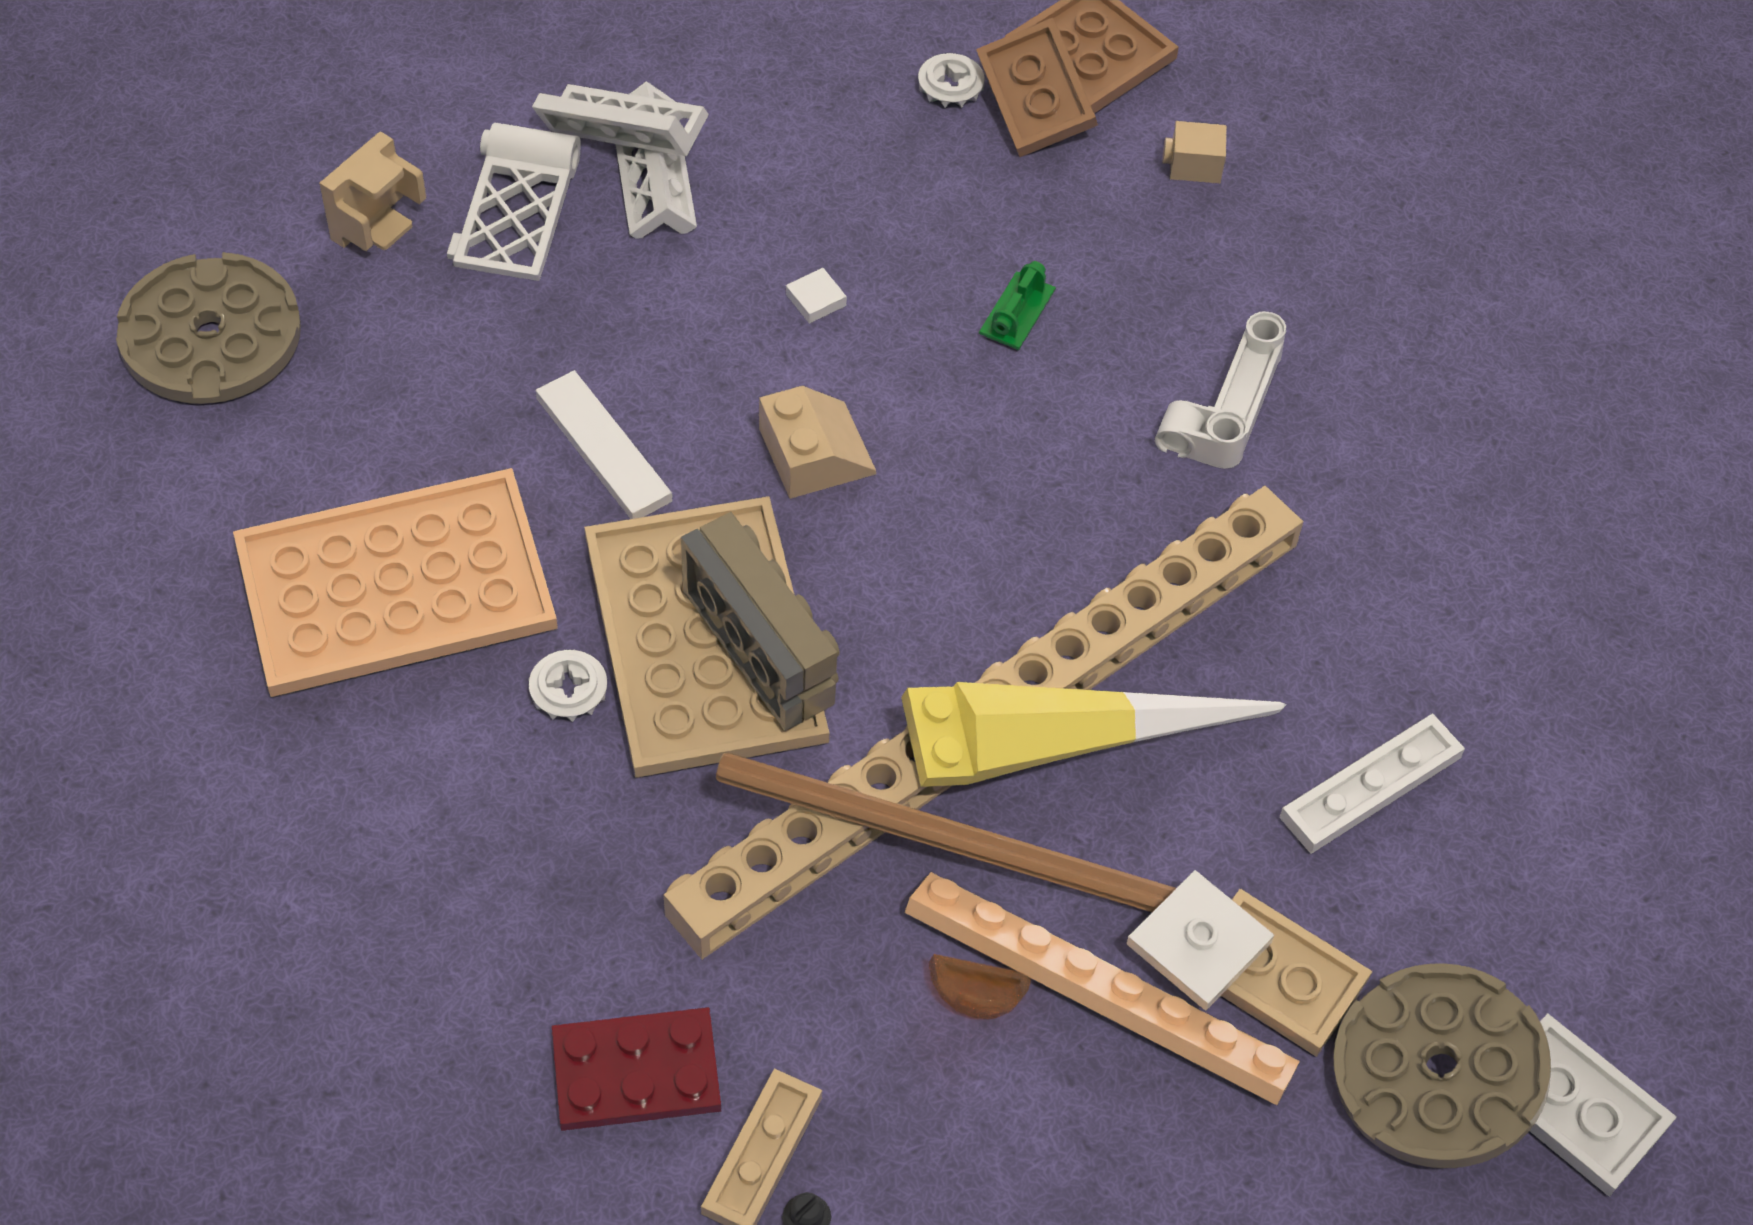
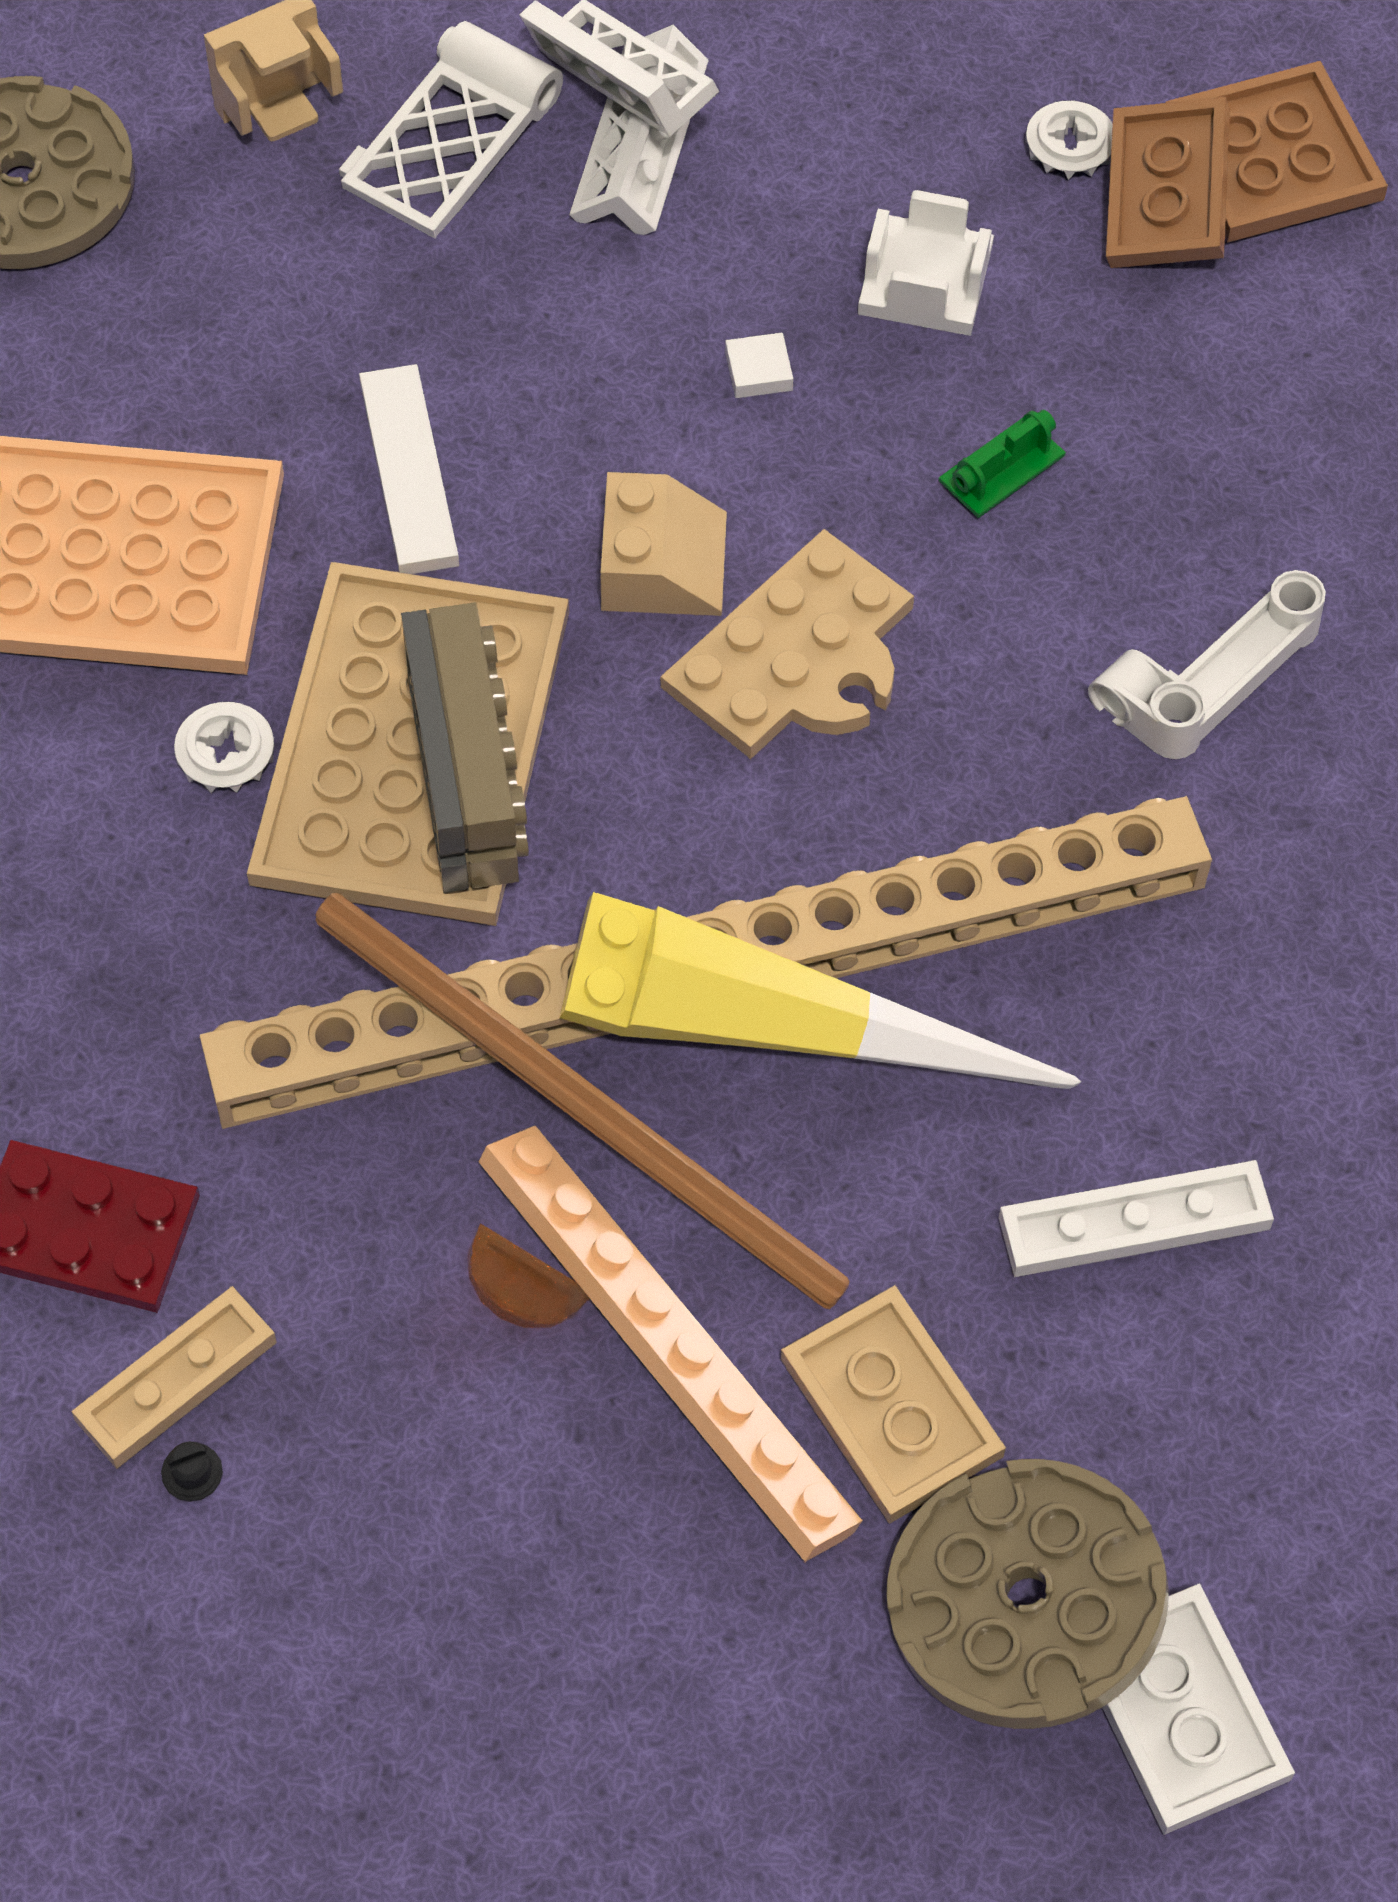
camera: 25 degrees right, 5 degrees up
(900, 193) = (926, 265): none -> white panel
(942, 480) = (796, 650): none -> tan plate
(1196, 152) = (1337, 333): tan brick -> none
(1200, 939) = (808, 1328): white plate -> none

